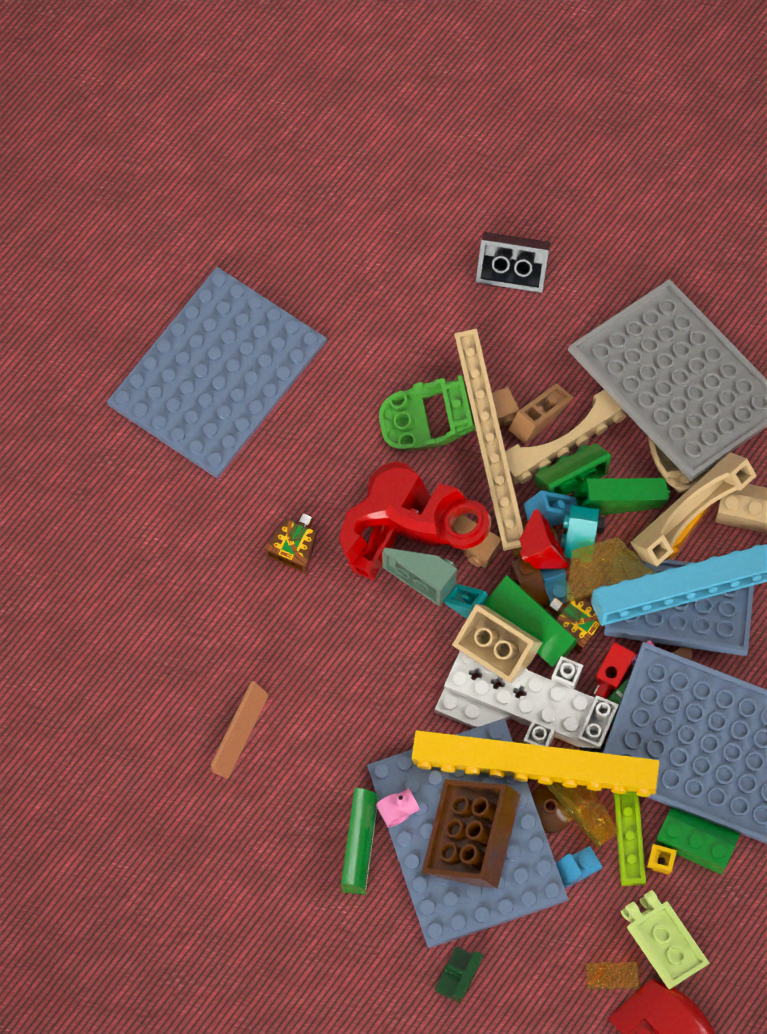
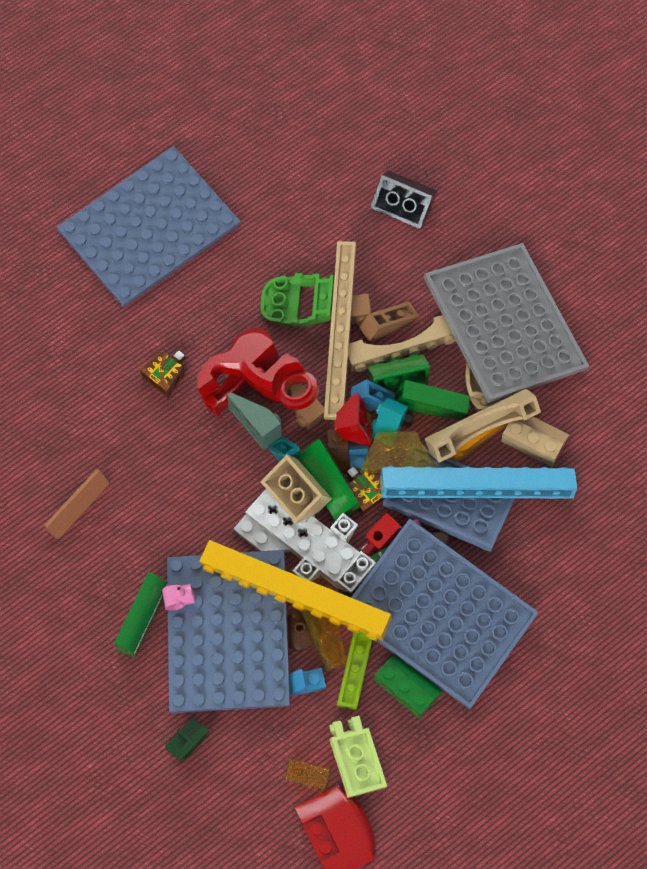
camera: 15 degrees right, 0 degrees up
(471, 832) = (229, 631): reddish brown slope -> none
(665, 853) = (374, 687): yellow piece -> none

